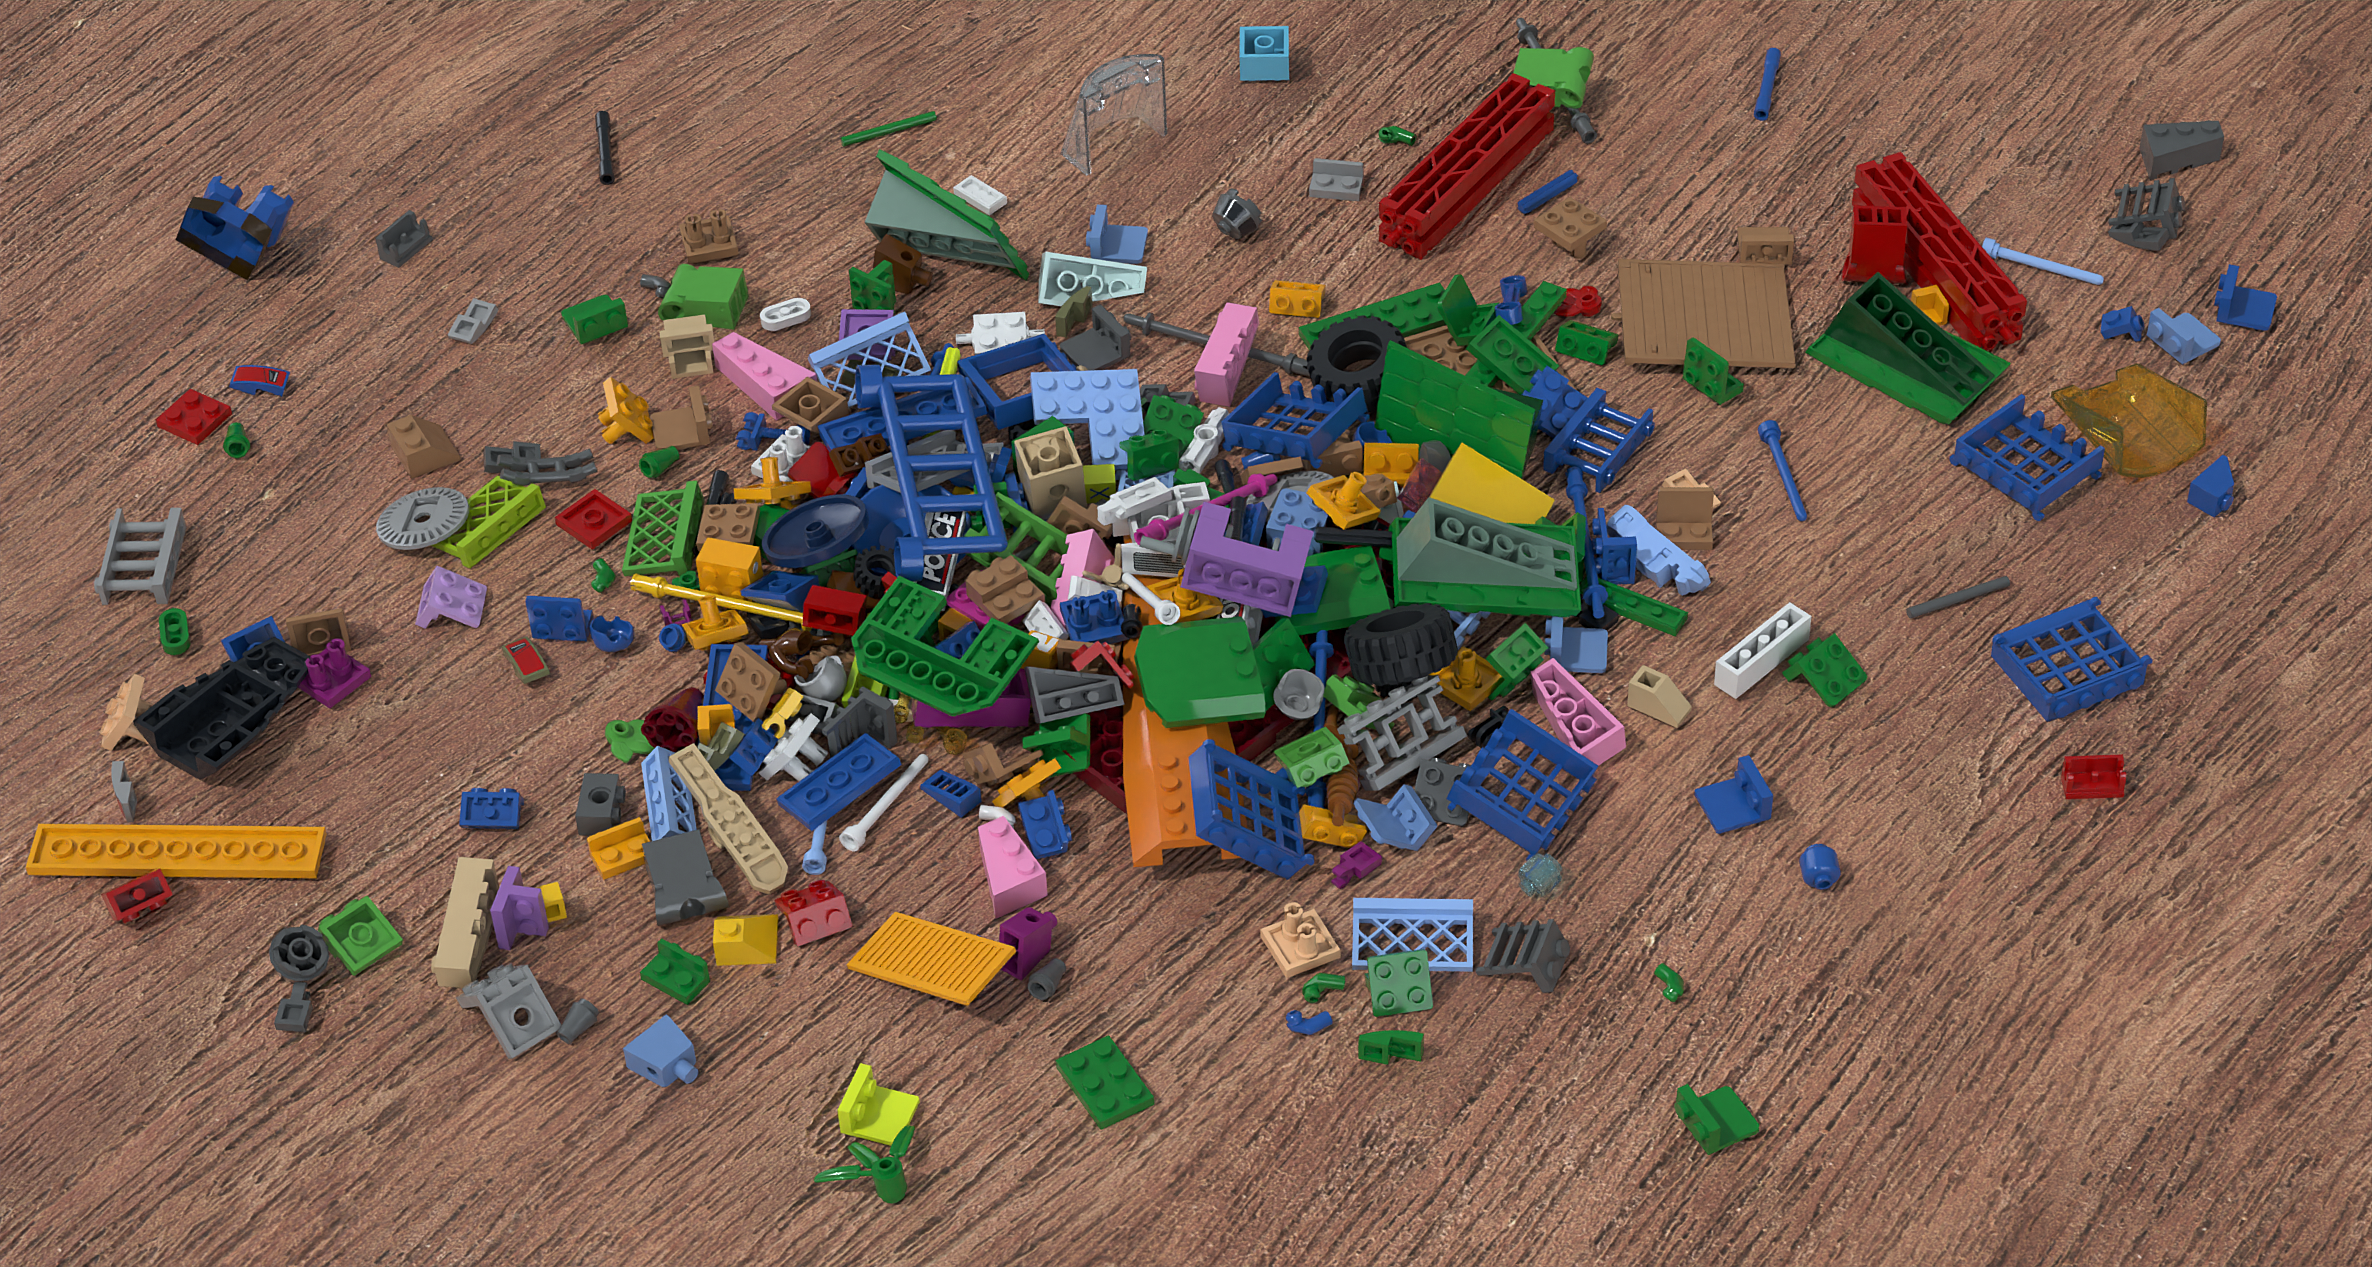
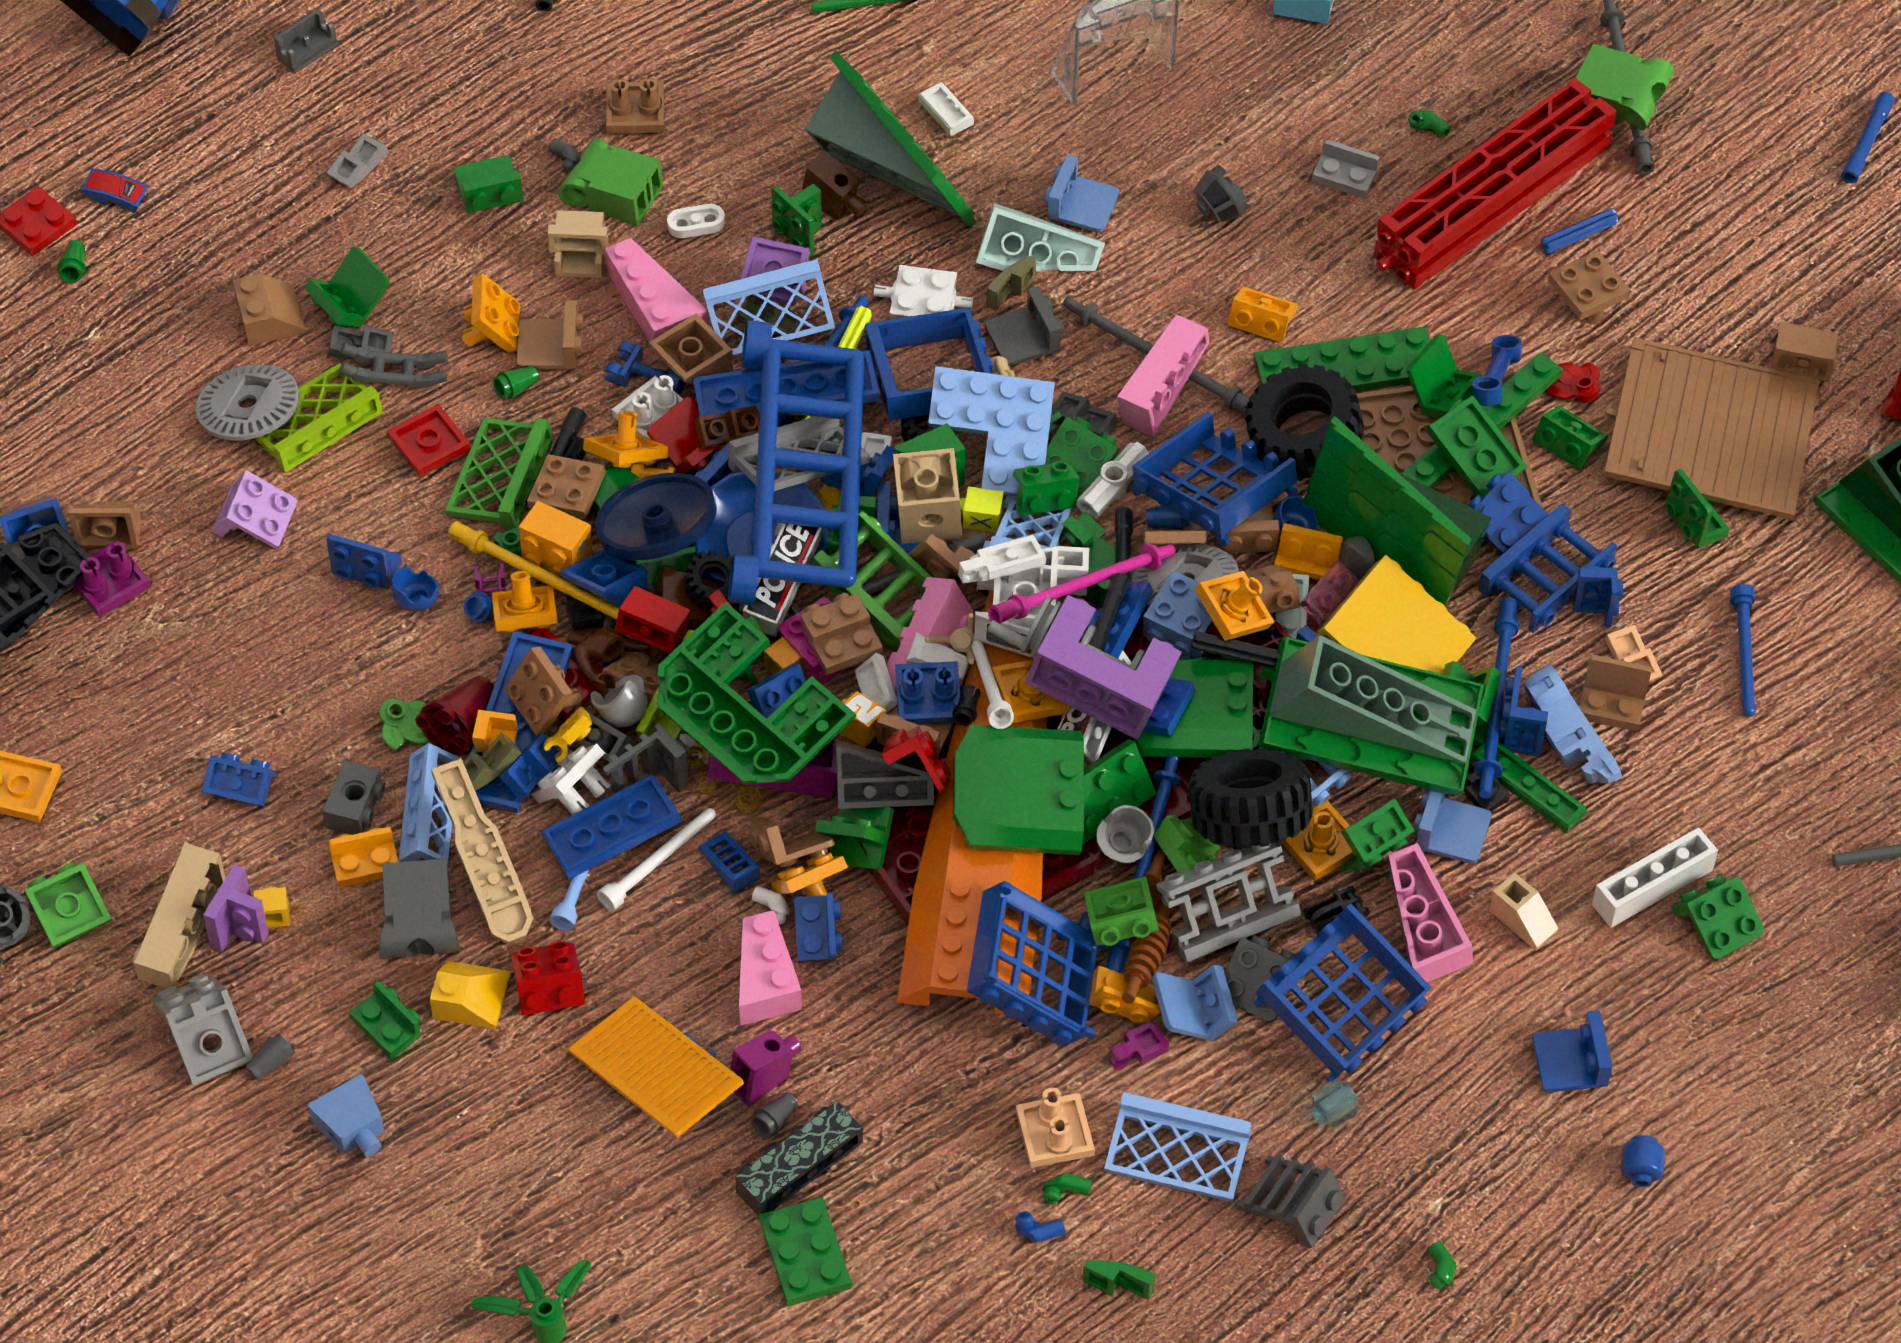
camera: 10 degrees right, 10 degrees up
(494, 416) = (351, 291): none -> green bracket
(525, 660) = (316, 601): slope -> none
(604, 576) = (424, 515): green arm -> none
(873, 1110) = (555, 1233): neon yellow bracket -> none
(1079, 1008) = (798, 1159): none -> black brick
(1399, 982) = (1146, 1205): green bracket -> none
(1648, 447) = (1598, 592): none -> blue bracket

